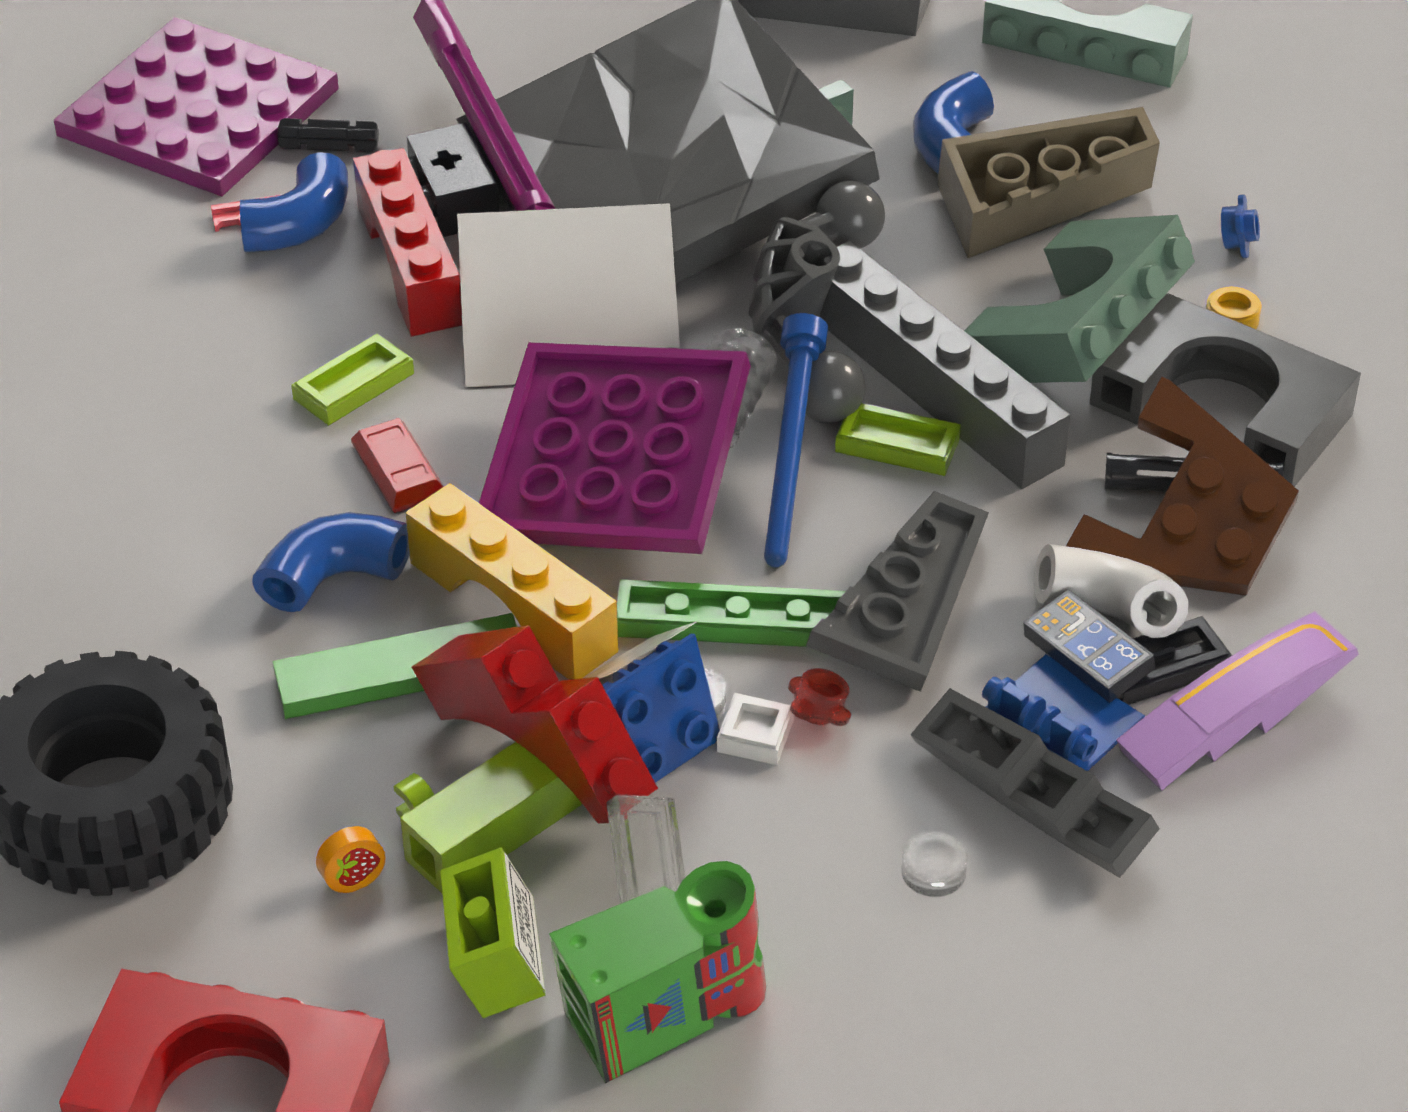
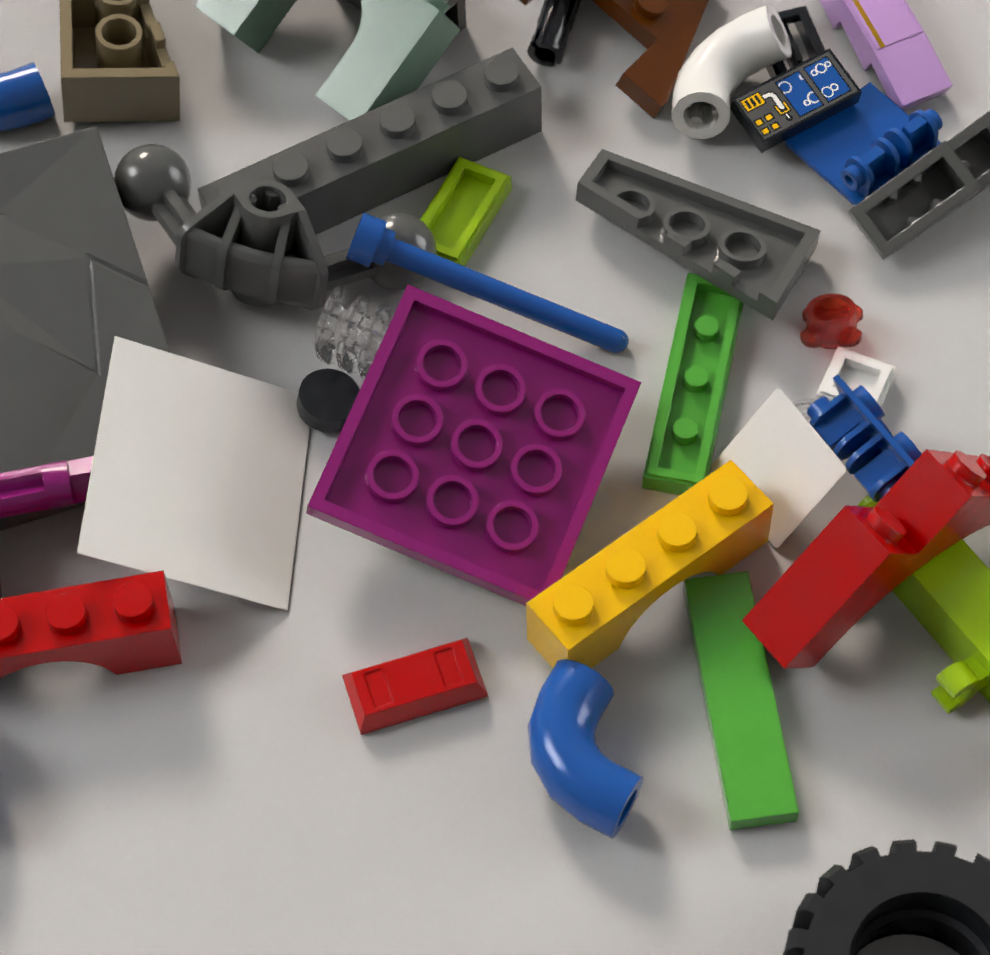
camera: 80 degrees left, 15 degrees up
(352, 379) = (257, 725): lime tile -> none

